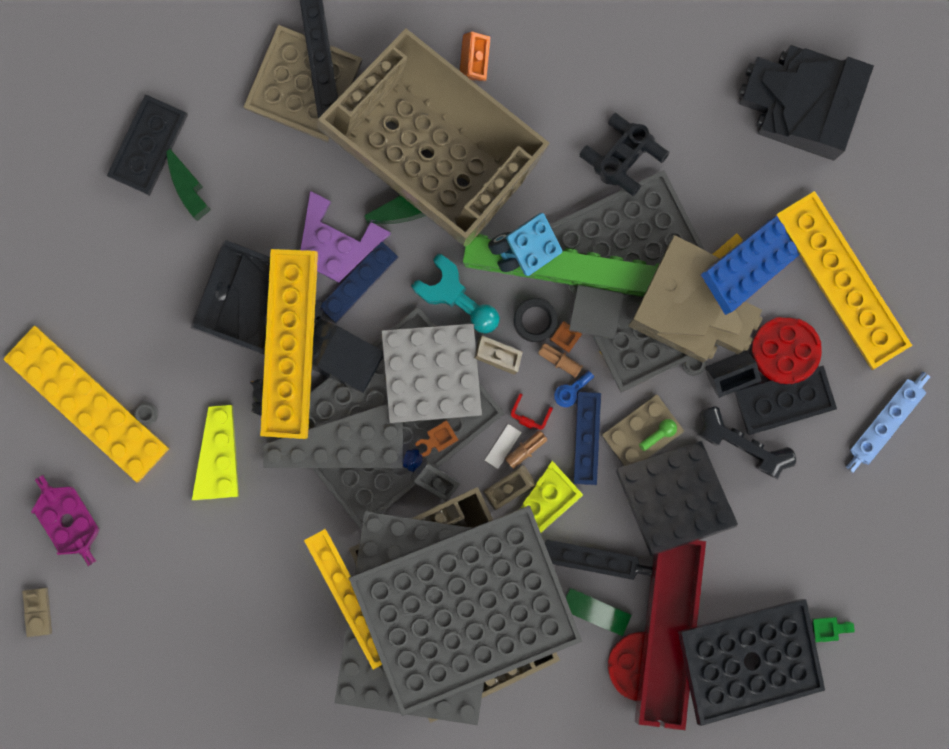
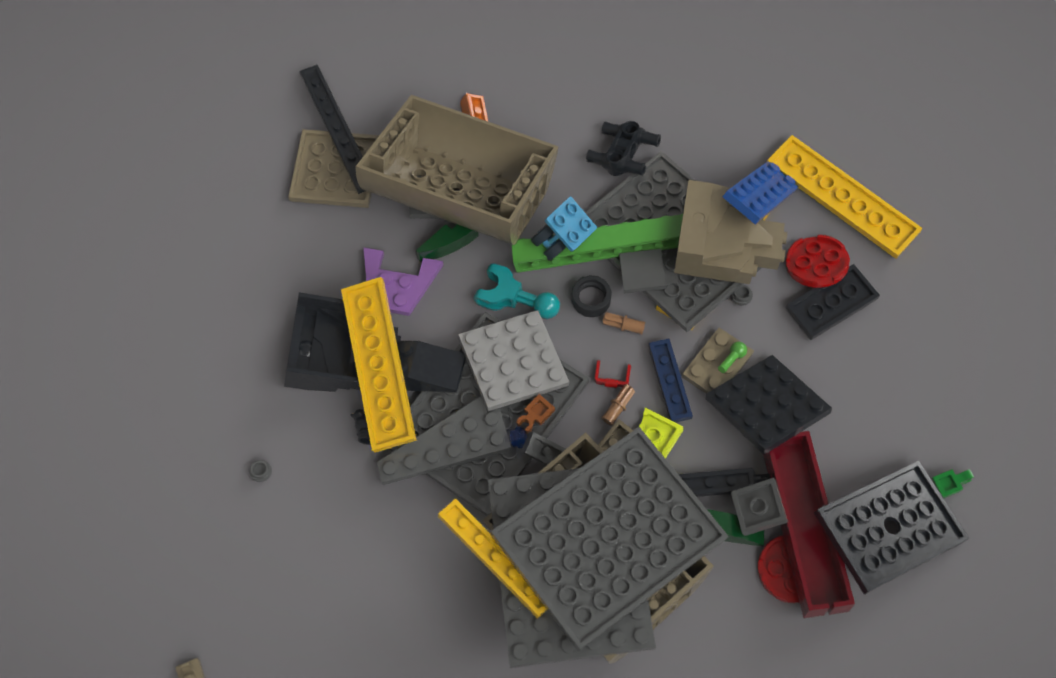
camera: 10 degrees left, 20 degrees down
(50, 510) = (192, 574): magenta plate -> none
(86, 404) = (203, 478): yellow plate -> none
(146, 145) = (211, 249): black plate -> none
(186, 187) = (255, 272): dark green slope -> none
(217, 461) = (337, 494): neon yellow wing -> none
(359, 282) = (427, 307): dark blue plate -> none
(498, 355) = (568, 331): plate -> none
(503, 446) = (596, 410): white sticker -> none
(564, 338) = (622, 302): dark orange plate -> none
(566, 395) = (639, 349): blue plate -> none
(628, 605) = (759, 507): none -> dark grey plate
(733, 373) = (779, 292): black brick -> none
(770, 462) = (839, 355): black plate -> none
(806, 99) = (759, 70): black panel -> none
(888, 422) = (927, 296): light blue plate -> none

